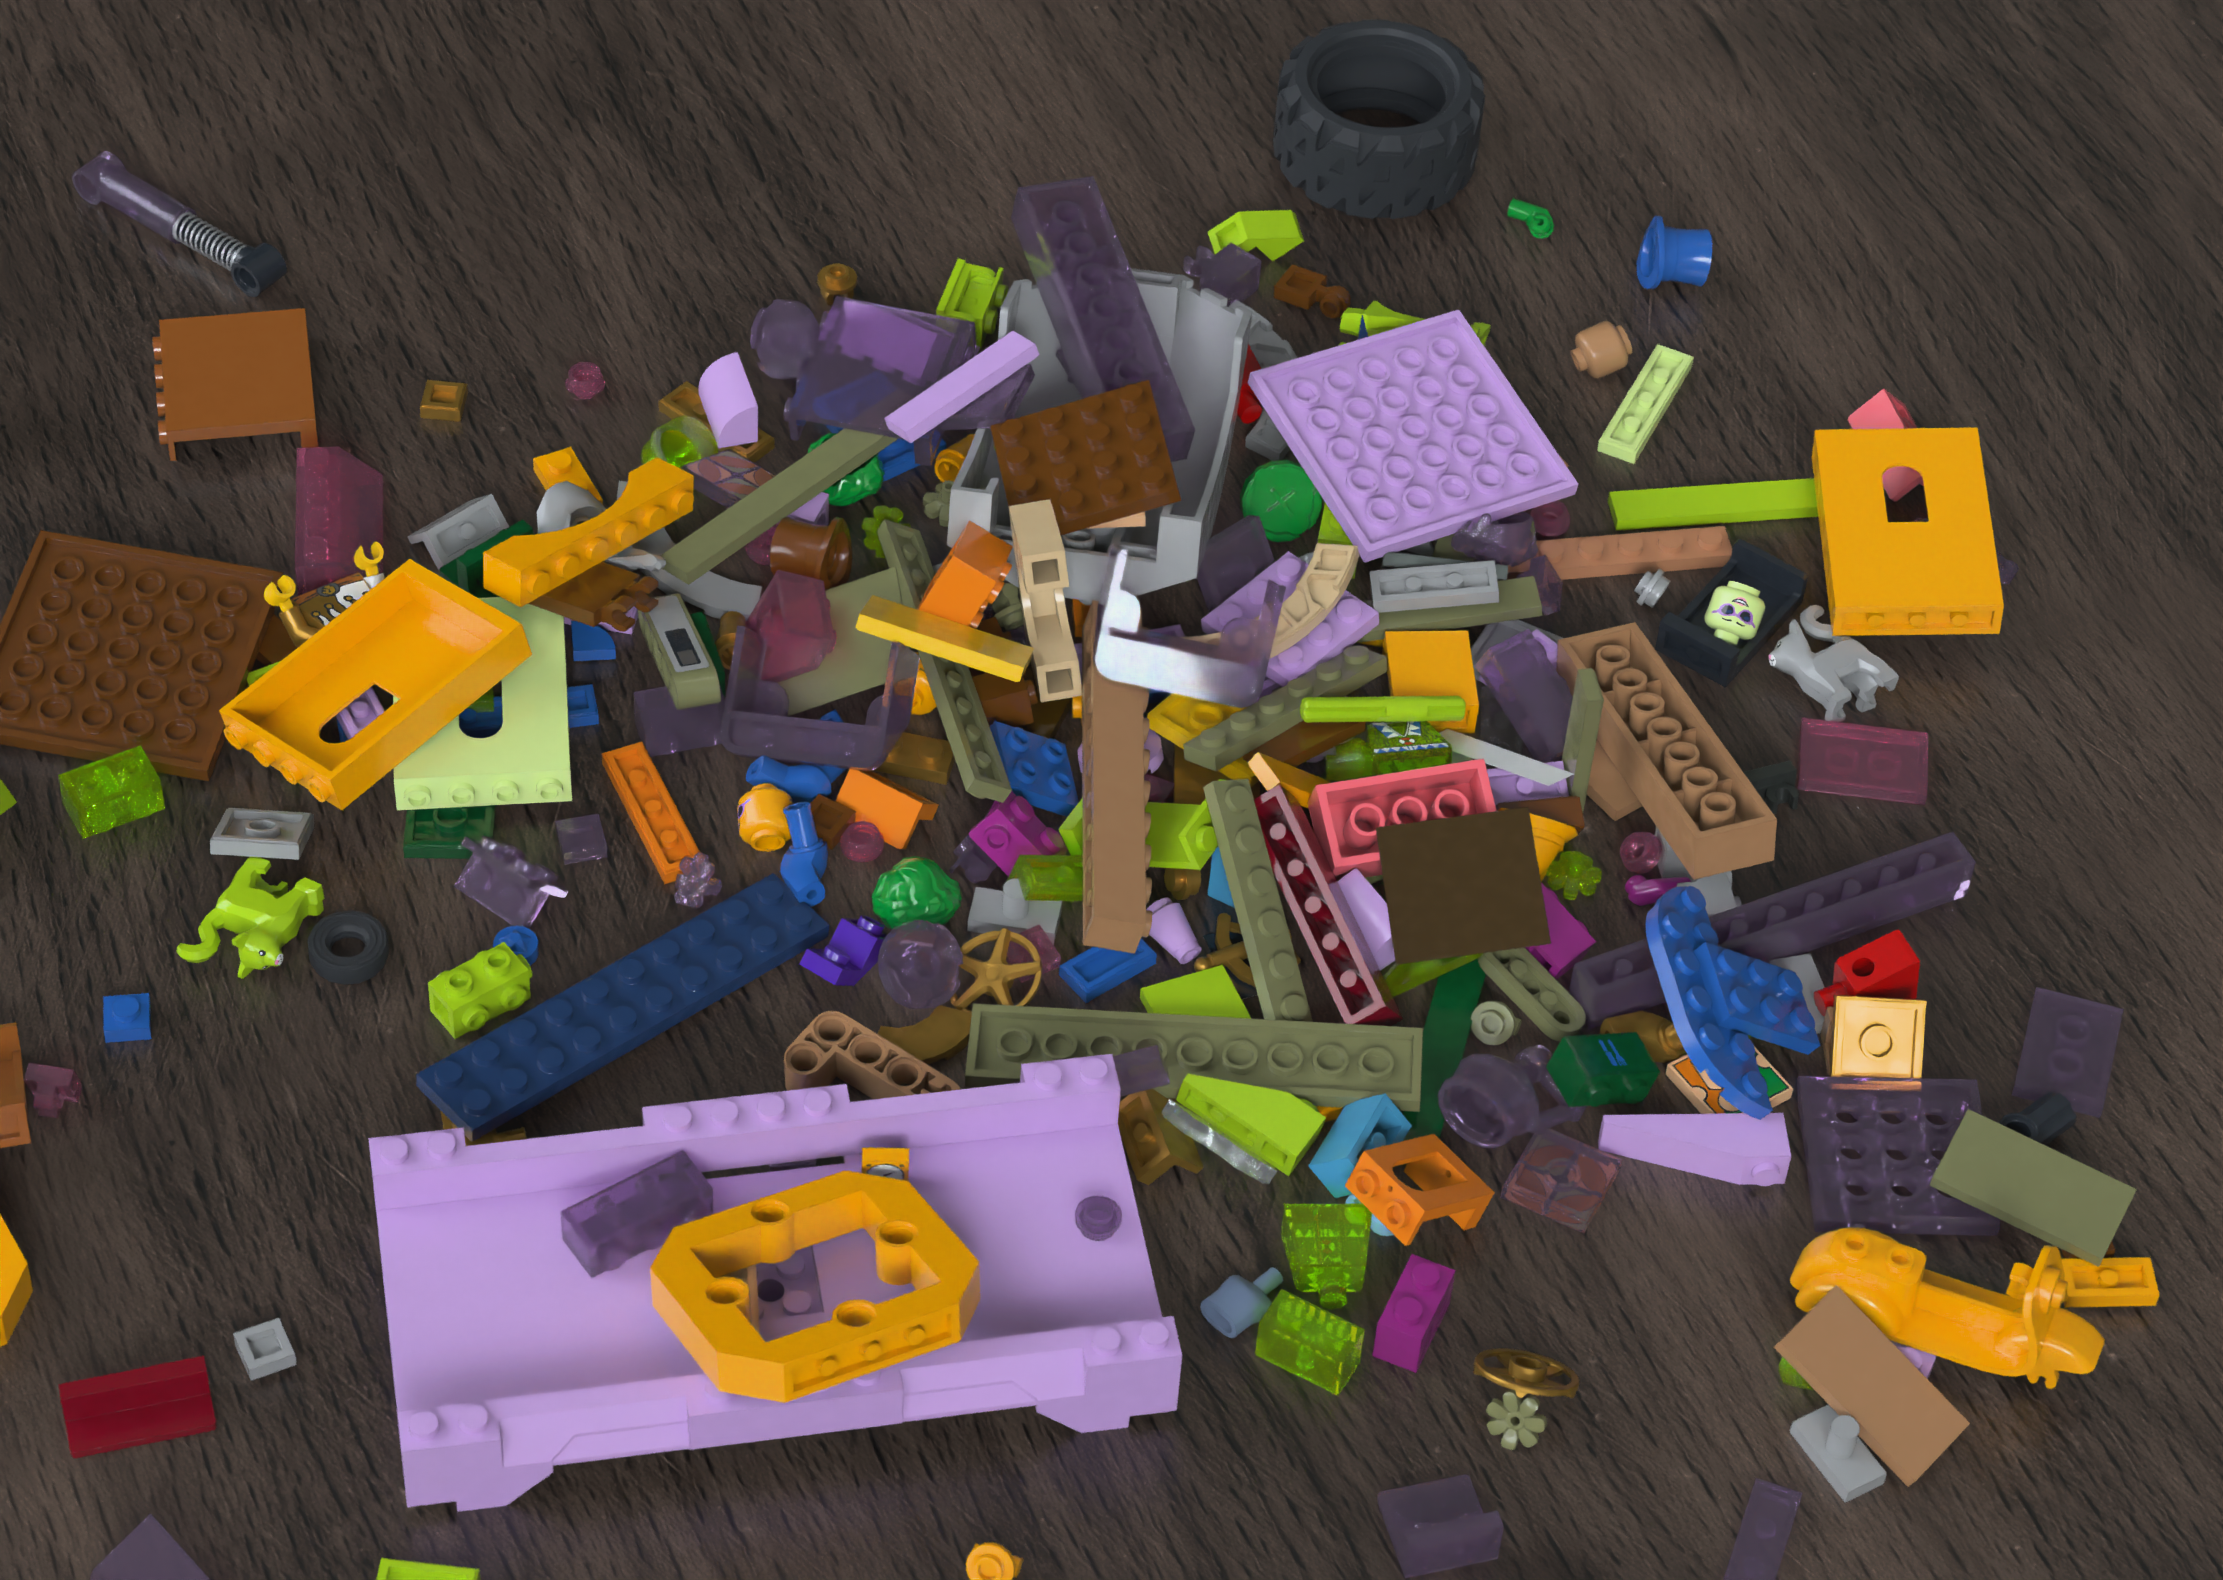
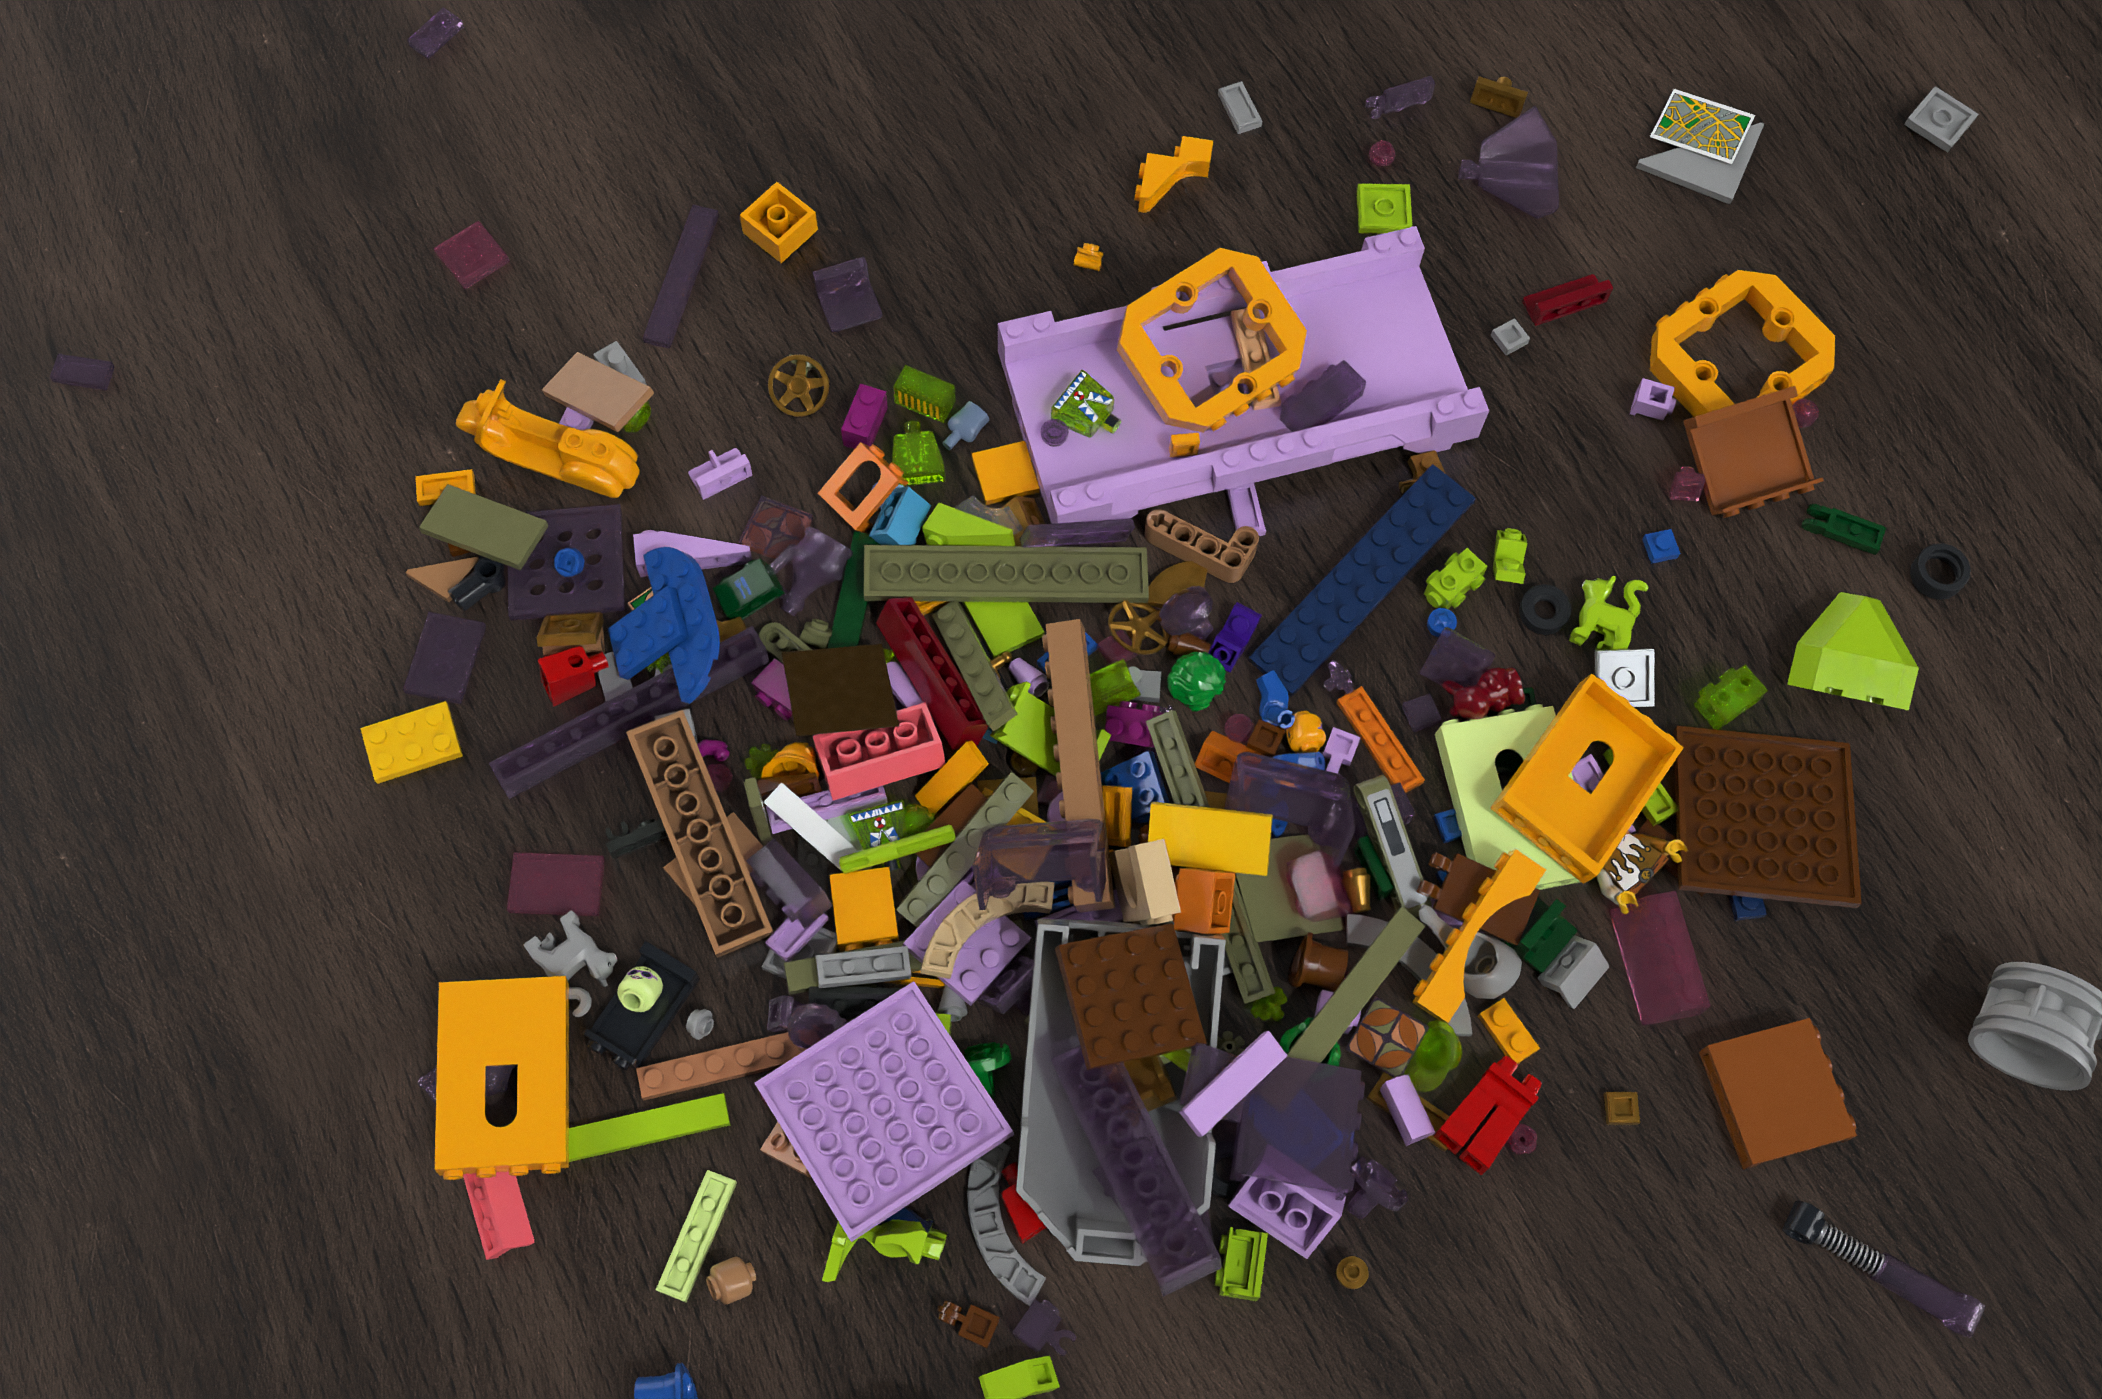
camera: 175 degrees right, 20 degrees up
(57, 1216) = (1653, 399): none -> lavender brick
(383, 1019) = (1509, 556): none -> lime slope
(509, 799) = (1493, 691): none -> dark red animal
(624, 397) = (1510, 1102): none -> red hips
(717, 798) = (1340, 749): none -> lavender plate
(1043, 1241) = (1086, 407): none -> clear neon green torso
(1063, 735) = (1118, 814): none -> light orange tile
(1184, 1224) = (1005, 472): none -> light orange tile
(1654, 1265) = (720, 472): none -> lavender panel
(1889, 1127) = (569, 562): none -> blue tile
(2098, 947) = (411, 742): none -> yellow plate
(2101, 1153) = (443, 576): none -> medium nougat tile

